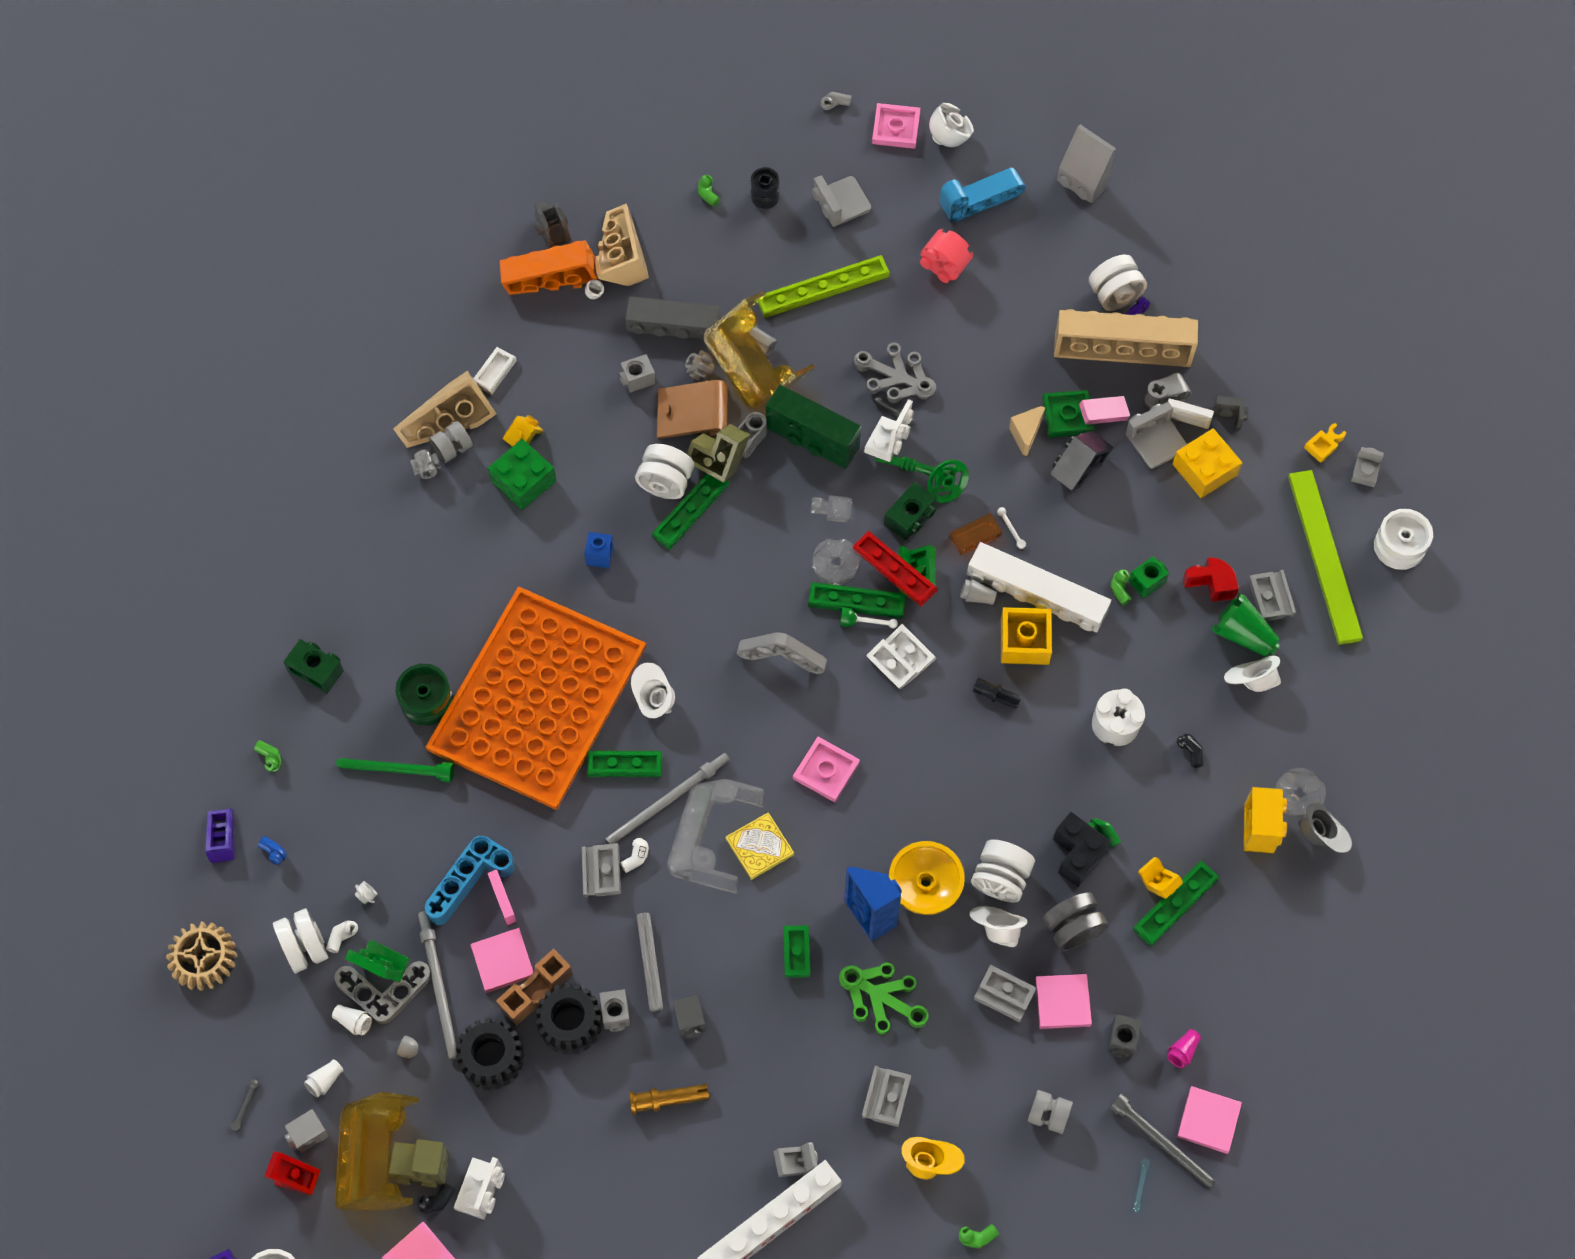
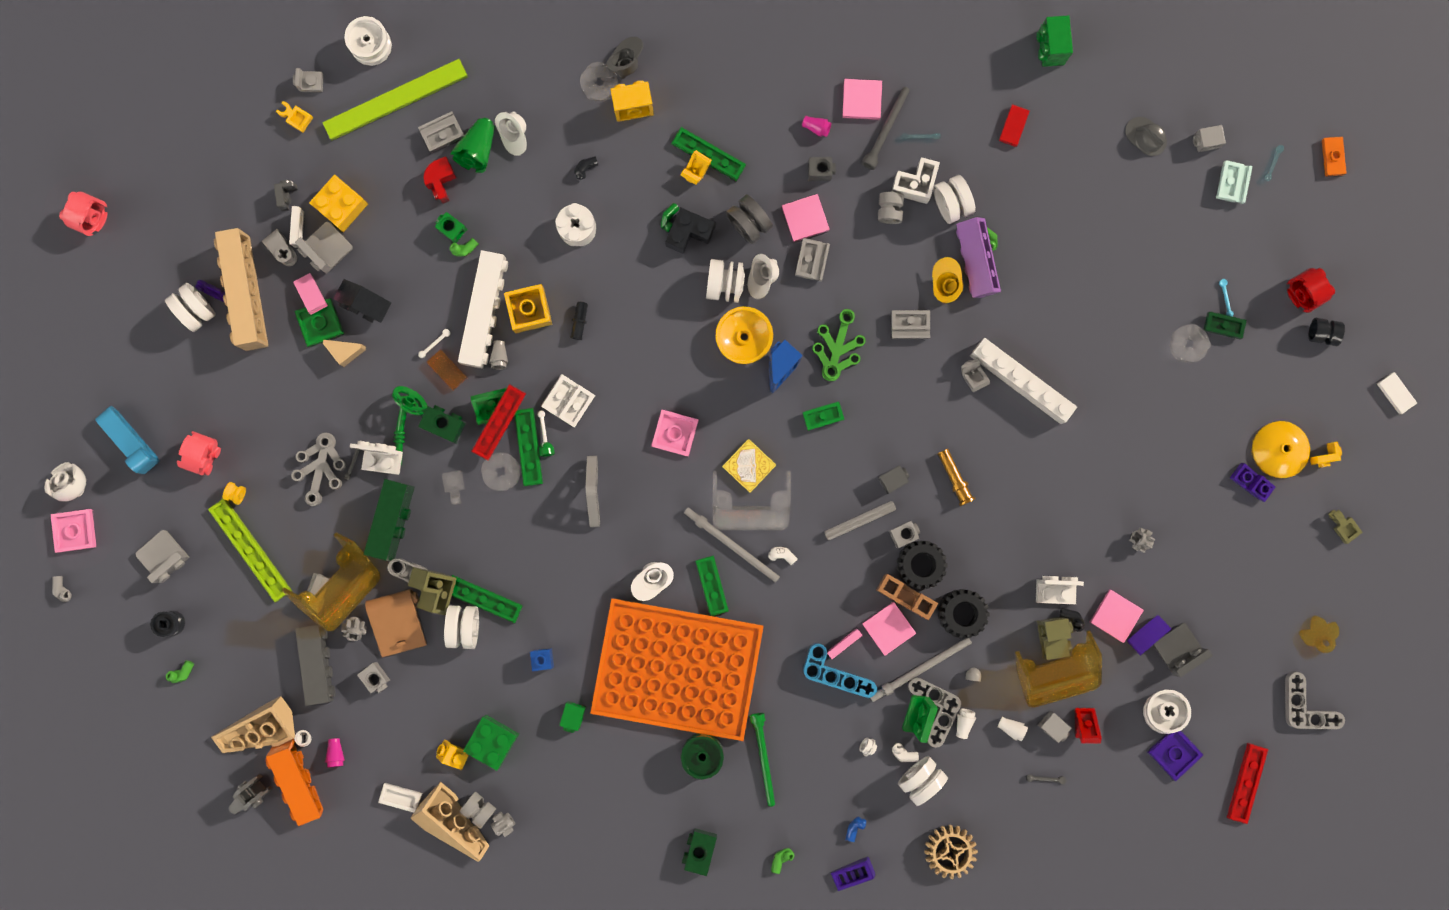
camera: 110 degrees left, 20 degrees up
(521, 567) = (572, 717): none -> green brick
(566, 316) = (334, 754): none -> dark pink cone
(601, 870) = (802, 577): light grey plate -> none
(891, 283) = (234, 493): none -> yellow wheel
(953, 1209) = (978, 257): none -> medium lavender brick
(1040, 1195) = (954, 199): none -> white wheel
(1072, 1160) = (917, 186): none -> white brick
(1086, 165) = (80, 357): light grey slope -> none
(1253, 205) = (84, 213): none -> coral brick

